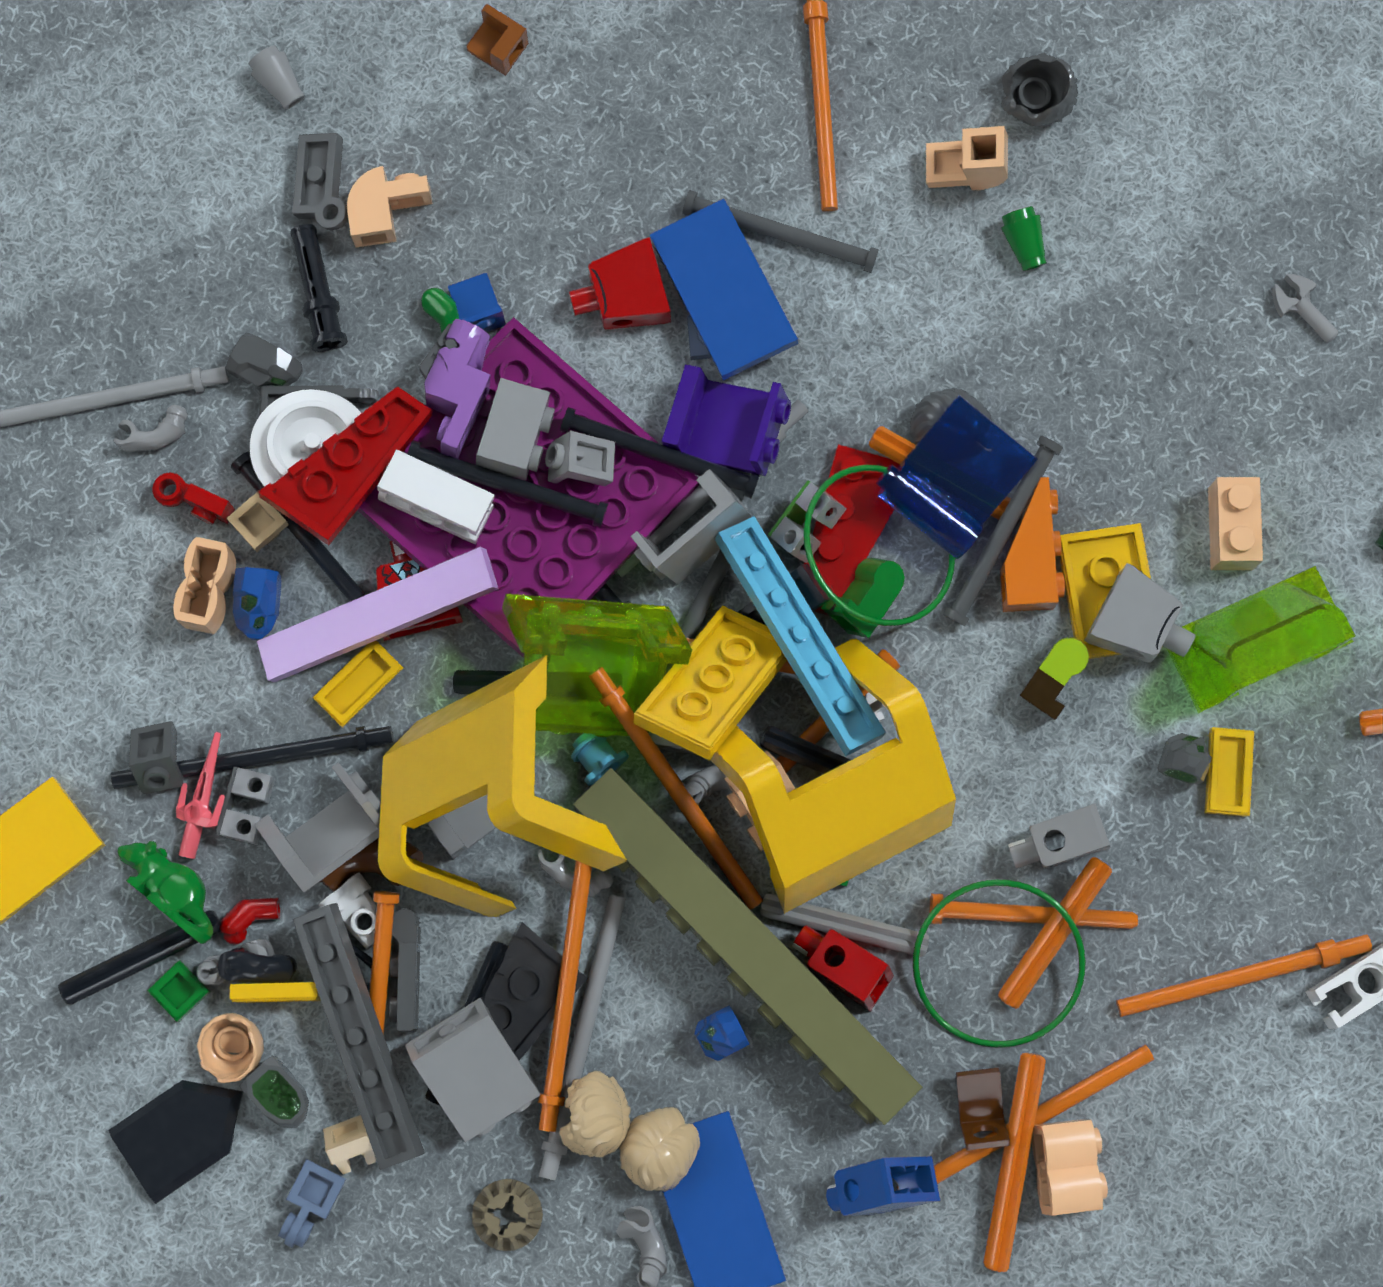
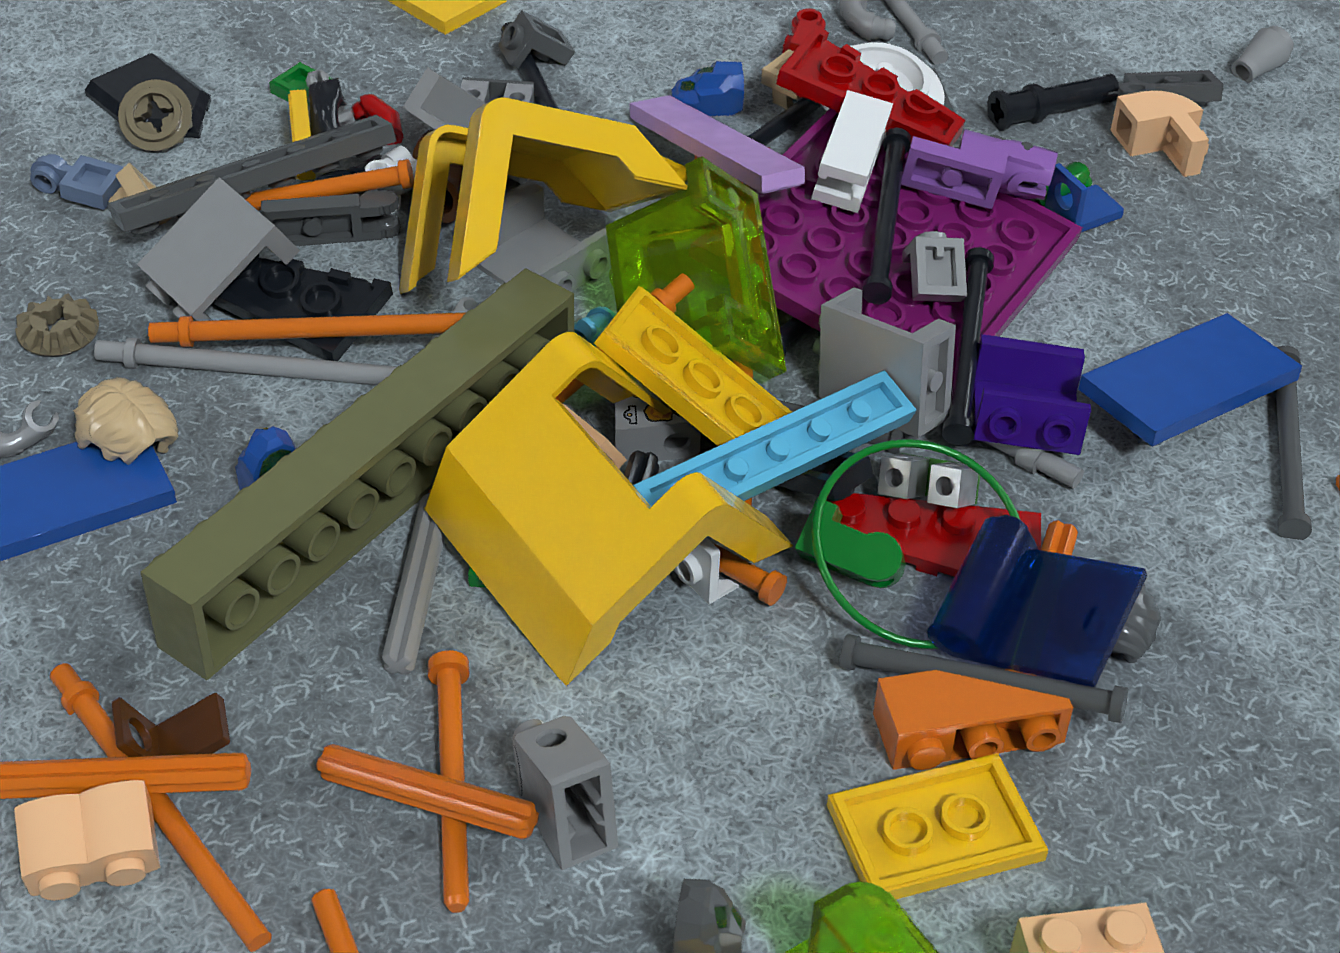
camera: 80 degrees right, 35 degrees down
(130, 962) = (331, 55): black axle -> none
(170, 887) = (396, 55): green animal -> none
(198, 812) = (456, 74): coral piece -> none
(208, 574) = (705, 37): light nougat brick -> none
(233, 1035) = (242, 112): light nougat hair -> none
(243, 1142) = (137, 107): none -> dark tan gear
(262, 363) = (960, 66): dark grey rock -> none
(277, 1093) = (196, 139): rock -> none
(514, 429) = (950, 204): light grey brick -> none
(597, 1115) = (169, 358): tan hair -> none
(625, 289) = (1153, 304): red torso -> none
(858, 977) = (354, 571): red torso -> none
(870, 1189) = (67, 623): blue torso -> none
(1008, 1043) = (415, 804): green piece -> none
(1064, 660) = (792, 756): leg -> none
(1139, 619) = (904, 830): light grey torso -> none

